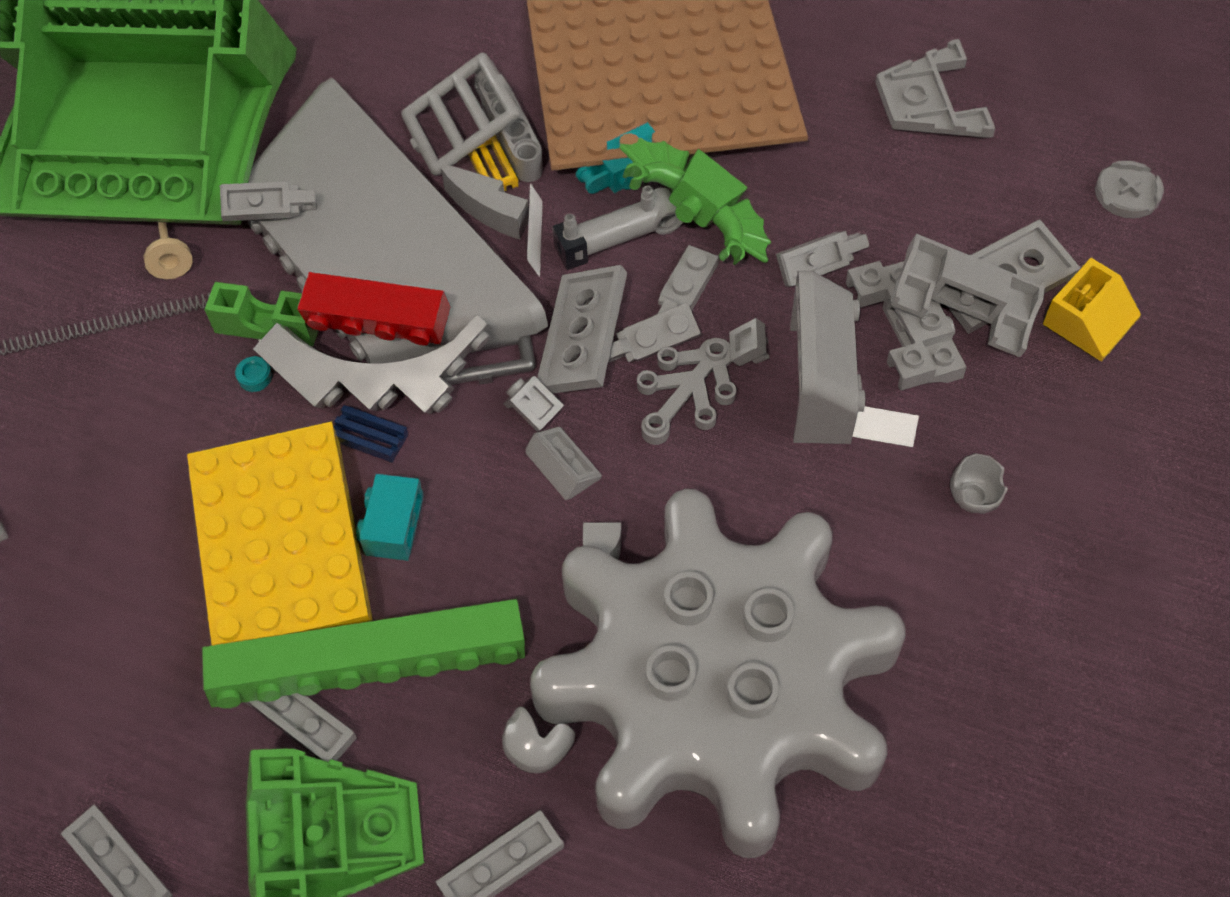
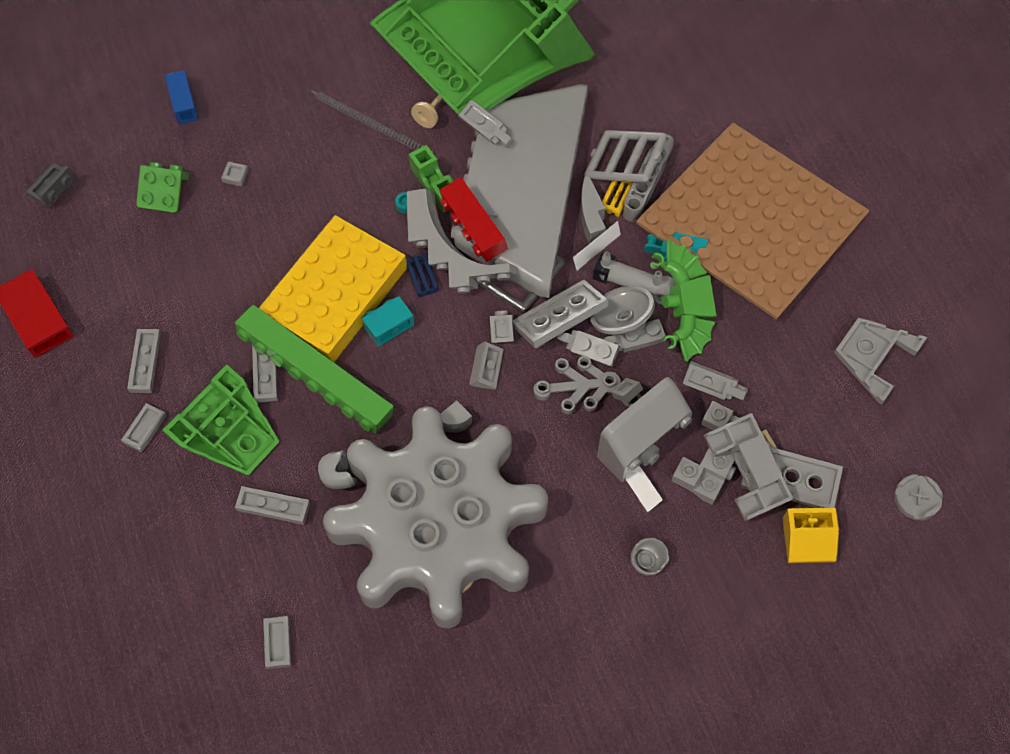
camera: 45 degrees right, 5 degrees up
(655, 263) = (627, 310): none -> light grey dish

